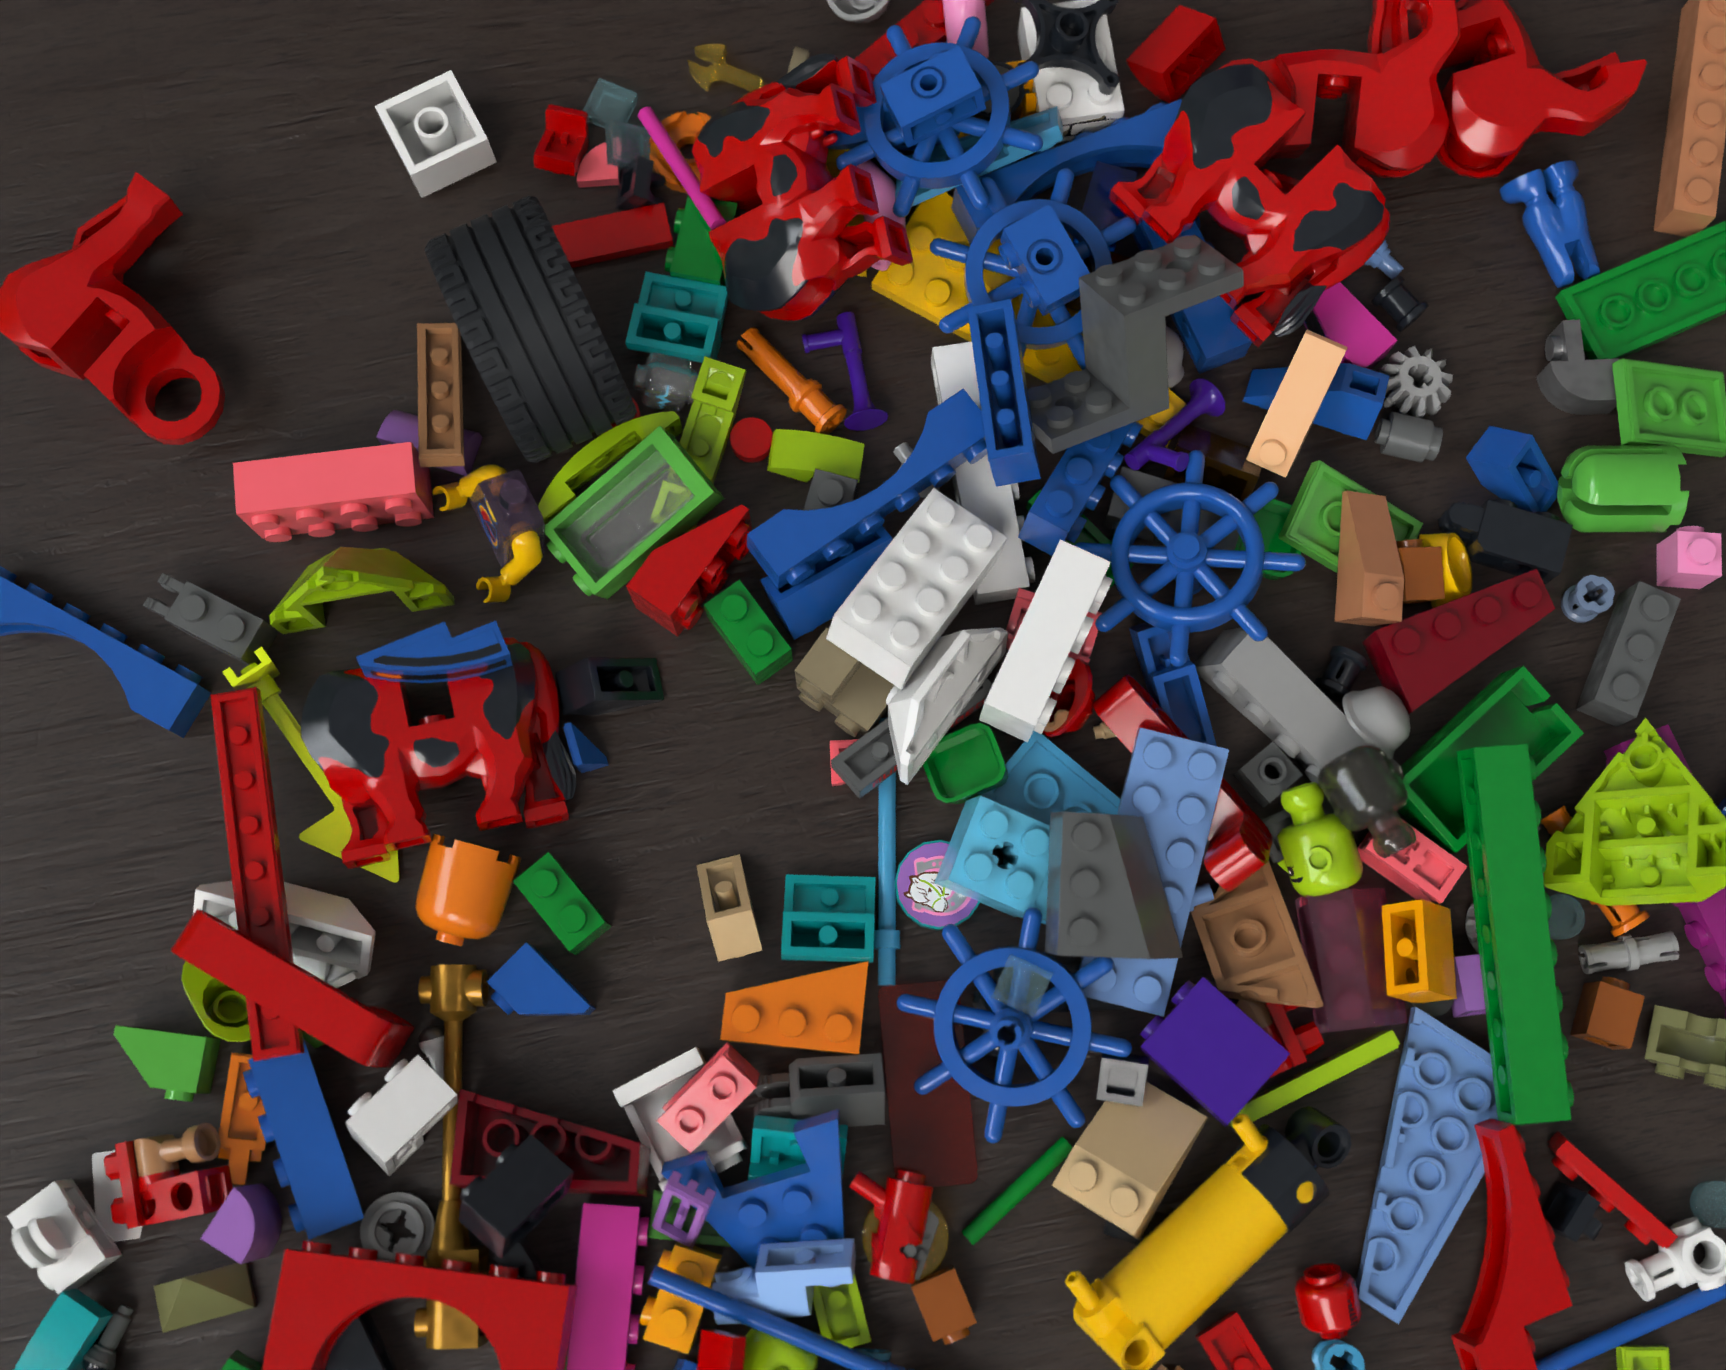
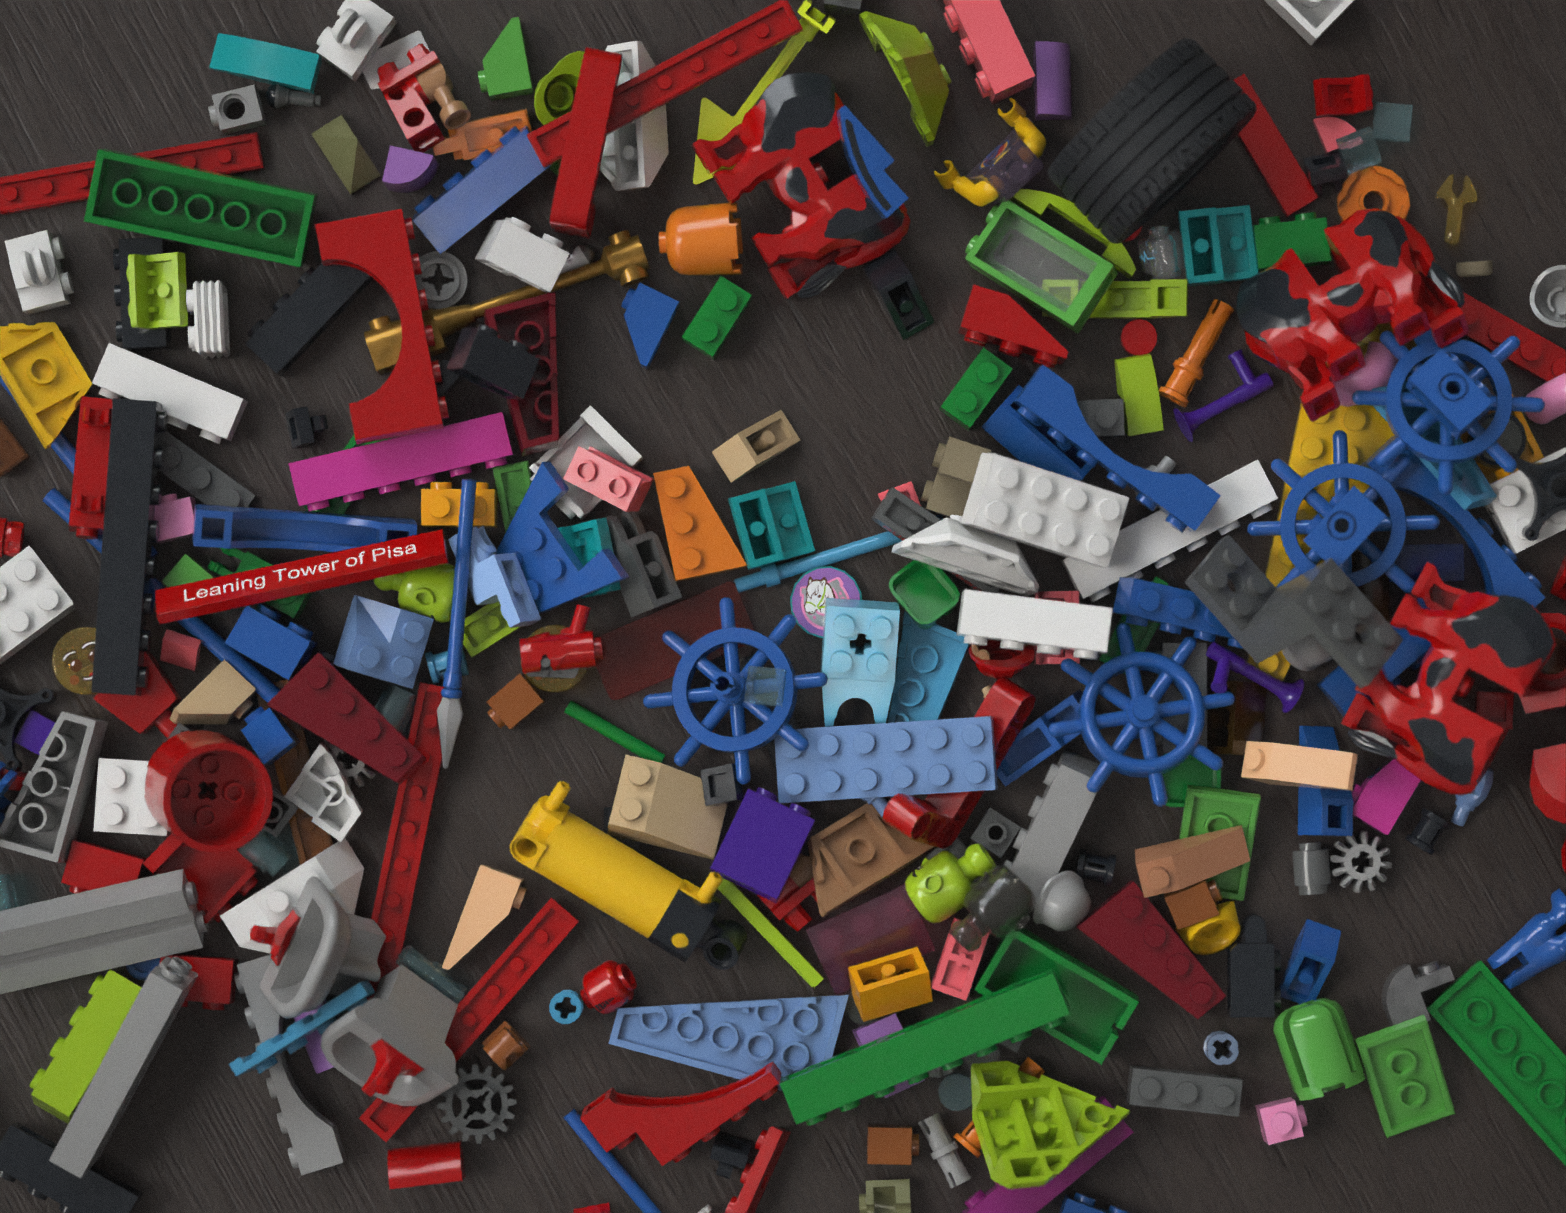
camera: 80 degrees right, 10 degrees up
(440, 395) = (1088, 77): medium nougat tile -> none
(583, 752) = (840, 291): blue slope -> none
(680, 167) = (1347, 203): dark pink bar -> none
(689, 1197) = (531, 488): medium lavender tile -> none
(1003, 393) = (1221, 528): blue brick -> none
(1105, 890) = (855, 728): dark grey wedge -> none

